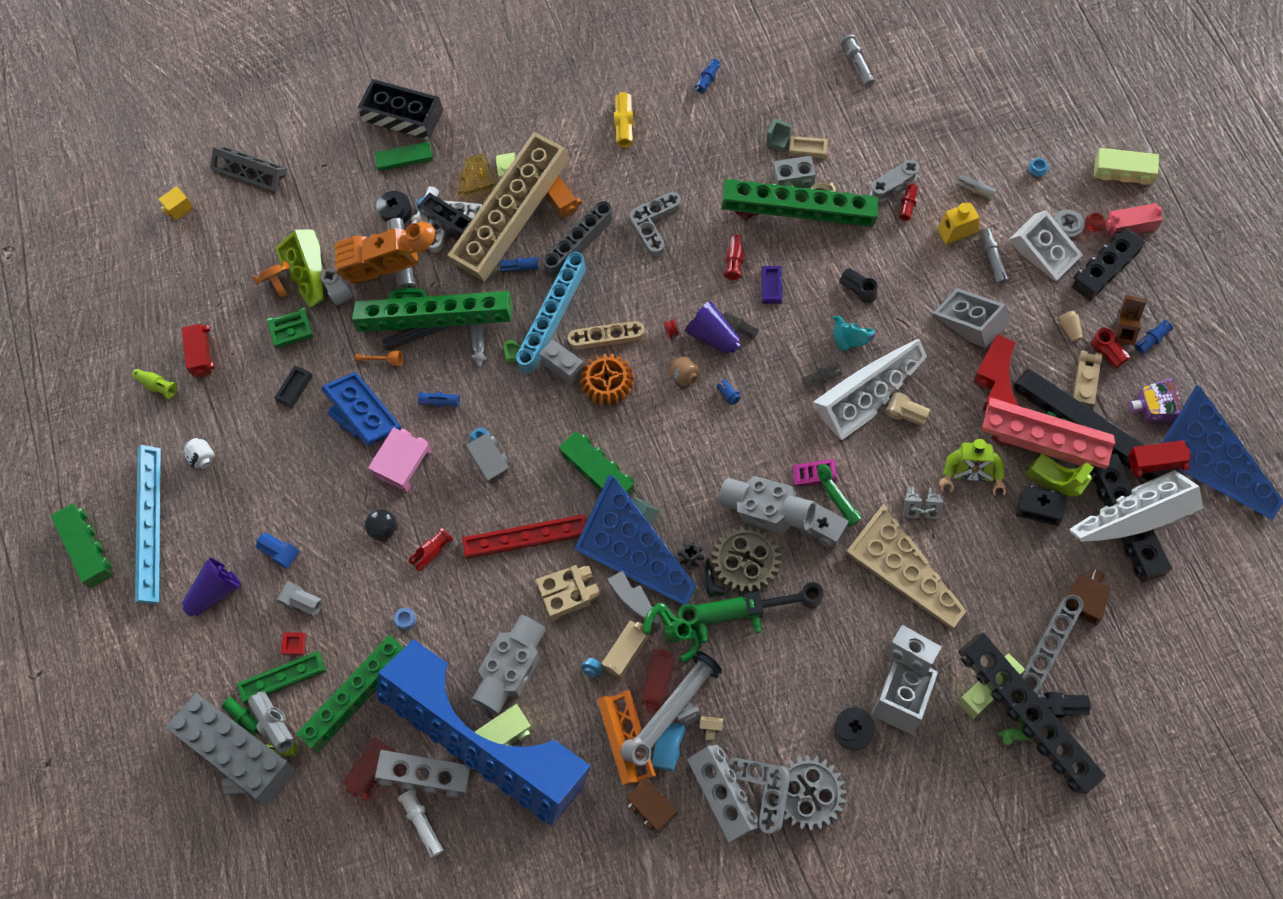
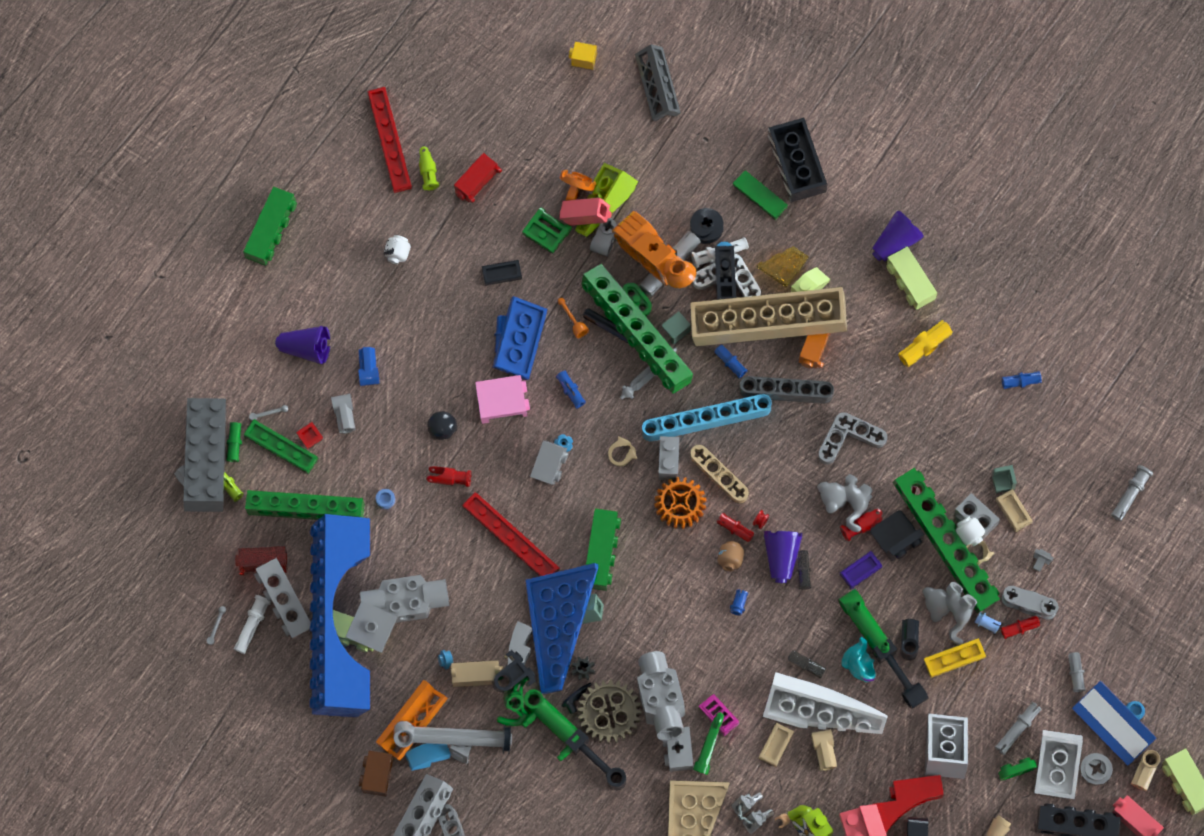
camera: 50 degrees right, 5 degrees up
(102, 397) = (389, 139): none -> red tile
(147, 525) = (319, 258): medium azure plate -> none
(250, 649) = (284, 408): none -> light grey hinge
(271, 722) = (243, 466): light grey piece -> none
(301, 283) = (585, 211): none -> coral brick
(404, 873) = (210, 640): none -> light grey hinge
(457, 281) = (677, 327): none -> sand green panel
(510, 351) = (652, 411): bright green tile -> none
(513, 710) = (371, 626): none -> light grey plate
(522, 81) = (896, 236): none -> dark purple cone
(534, 391) = (630, 455): none -> tan piece
(563, 95) = (911, 278): none -> yellowish green brick
(566, 592) = (489, 598): tan hips -> none
(655, 611) = (513, 673): none -> black pin
(658, 679) = (471, 712): clear red brick -> none
(662, 352) = (735, 527): none -> red axle
(697, 258) = (835, 497): none -> light grey animal
(711, 724) = (464, 774): tan tile -> none
(765, 239) = (897, 535): none -> black bracket
(803, 306) = (882, 647): none -> piece
(807, 177) = (970, 531): none -> white head
(847, 242) = (942, 602): none -> light grey animal
(864, 151) = (1042, 557): none -> light grey brick
(874, 446) = (776, 745): none -> tan tile
(883, 224) = (987, 622): none -> light blue pin
(900, 263) = (954, 658): none -> yellow plate
(959, 223) = (1026, 681): yellow torso -> none
(1030, 270) = (1025, 765): none -> green plate
(1039, 186) = (1114, 723): none -> tile
(1095, 188) = (1145, 771): none -> tan piece
(1095, 222) = (1114, 789): clear red plate -> none

